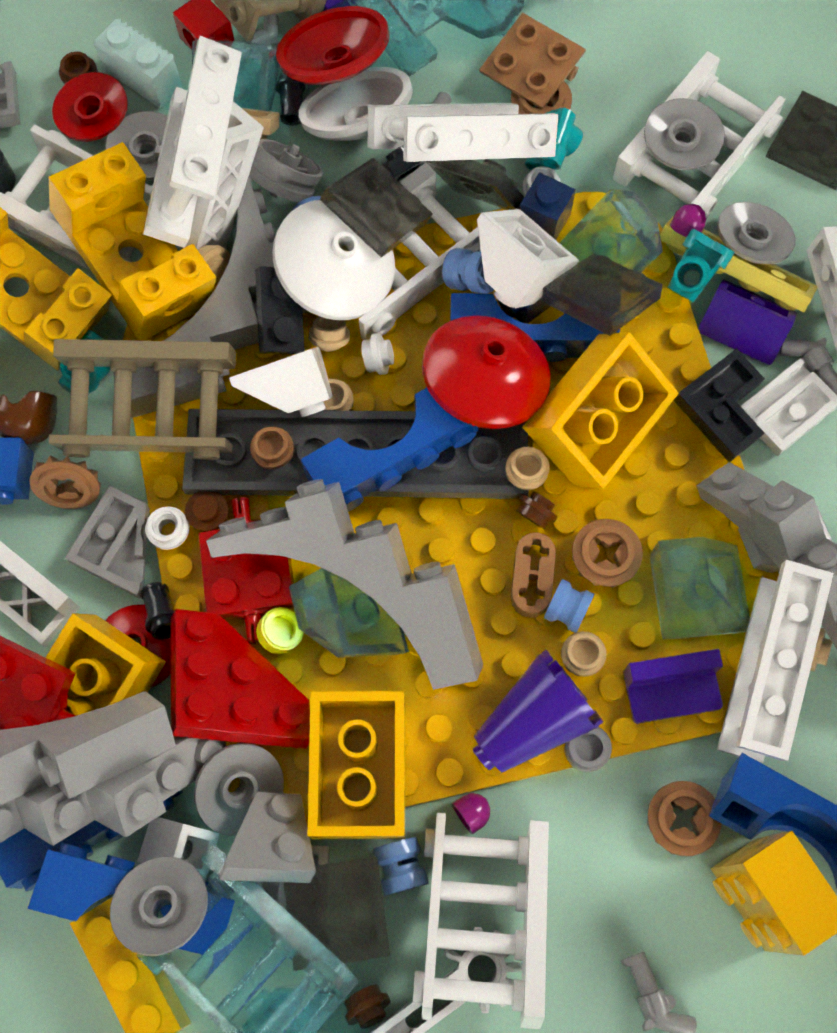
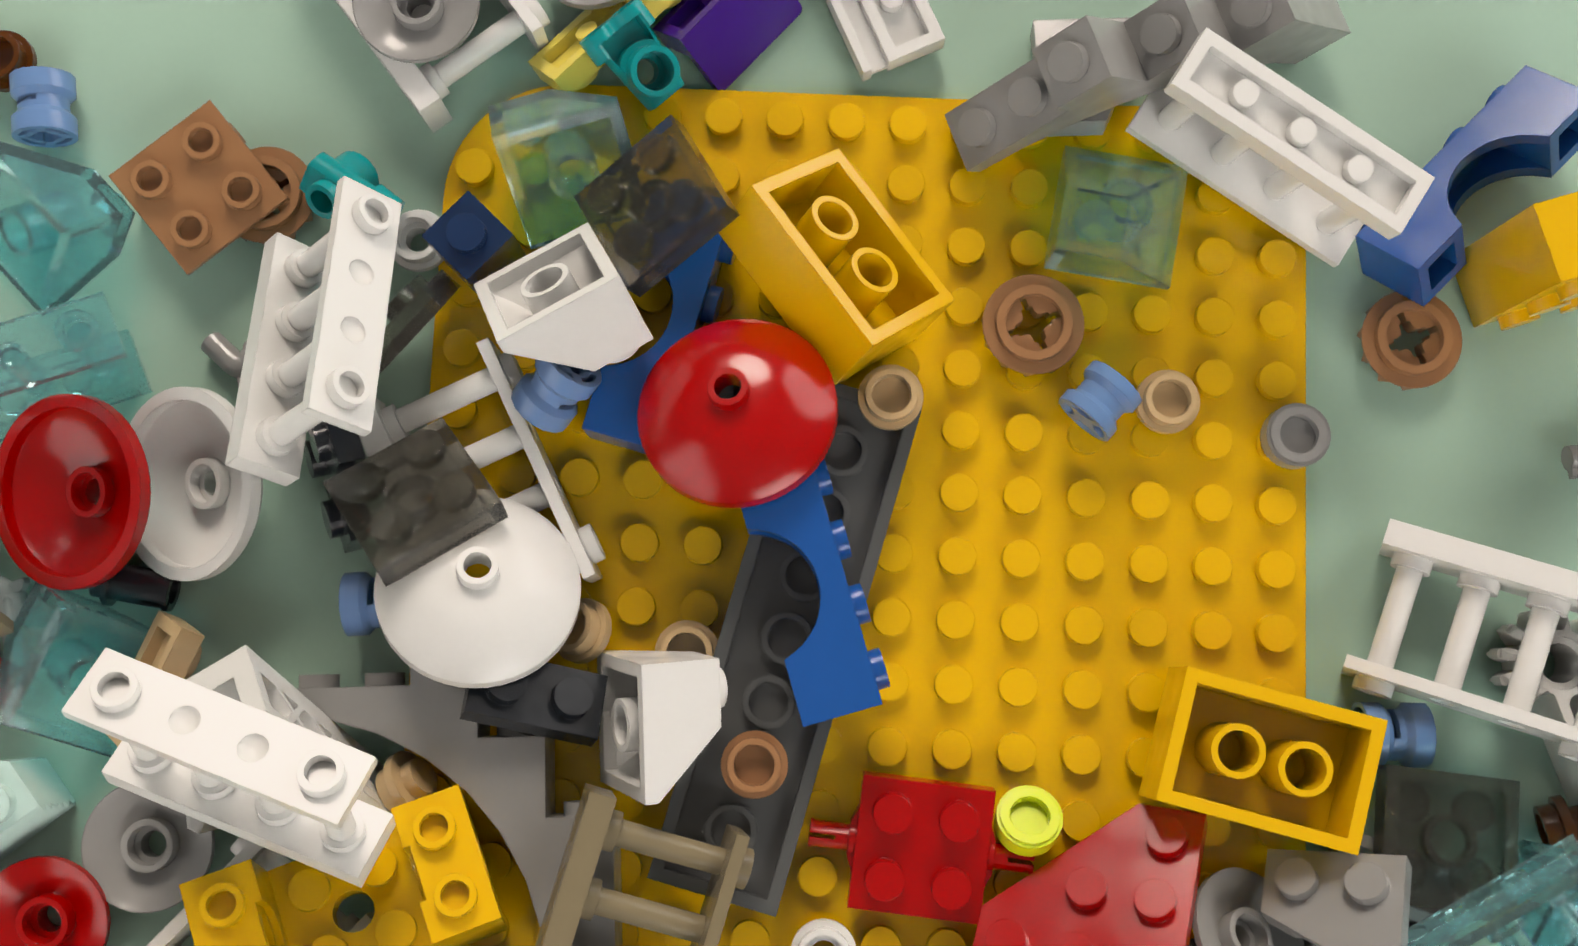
camera: 75 degrees left, 10 degrees up
(206, 511) = (815, 887): reddish brown plate -> none
(285, 171) = (282, 621): light grey wheel -> none
(320, 532) = (984, 665): light grey arch -> none
(344, 617) = (1036, 713): clear light blue slope -> none
(377, 354) = (637, 565): white plate -> none
(472, 811) = (1337, 615): magenta hinge -> none
(534, 717) = (1250, 492): dark purple cone -> none
(537, 509) = (947, 403): reddish brown plate -> none
(543, 575) = (1041, 422): medium nougat beam -> none
(673, 686) = (1241, 295): dark purple panel -> none
(688, 217) = (558, 44): magenta hinge -> none
(714, 406) = (855, 107): black plate -> none

